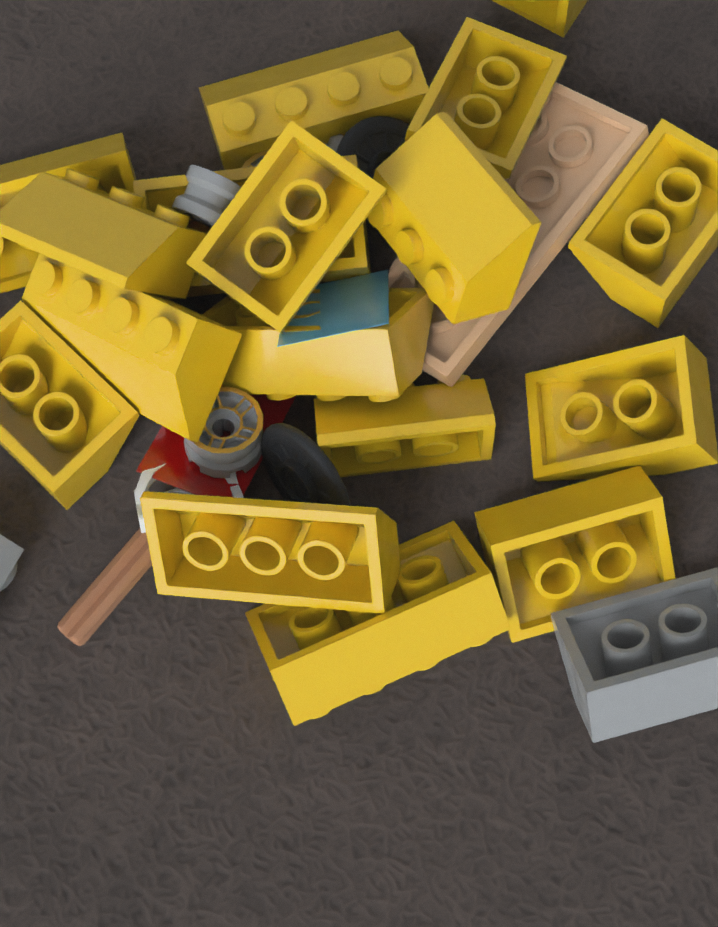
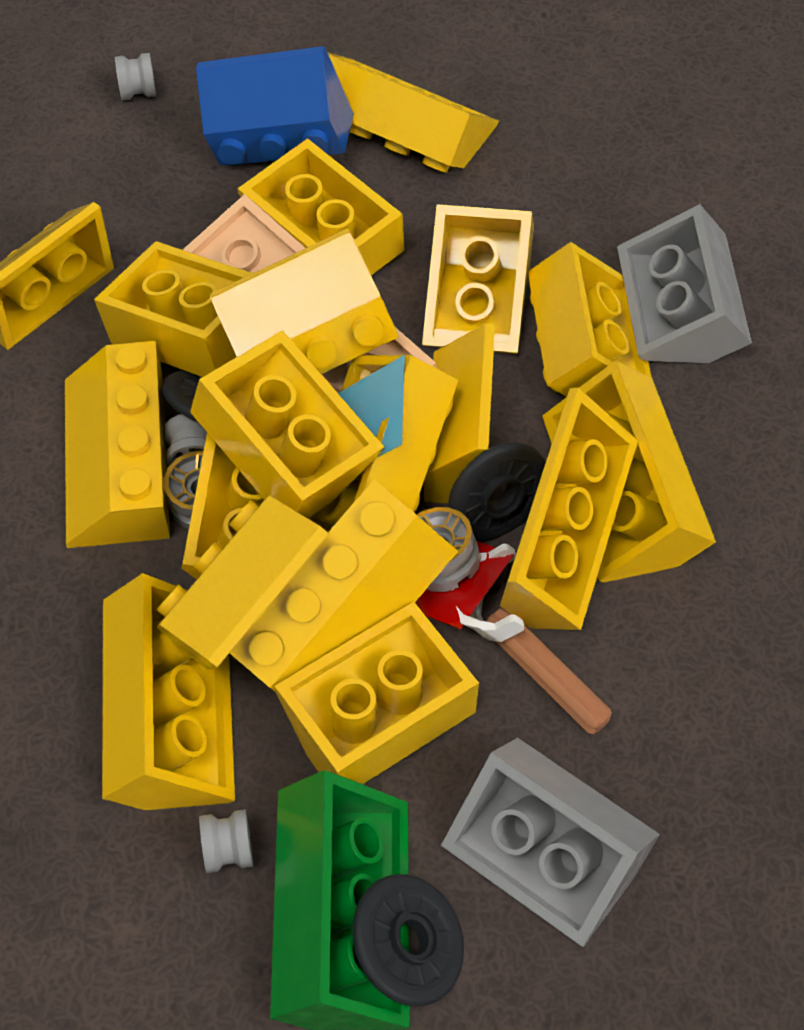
camera: 85 degrees left, 15 degrees down
(205, 195) = (228, 491): light grey wheel -> none

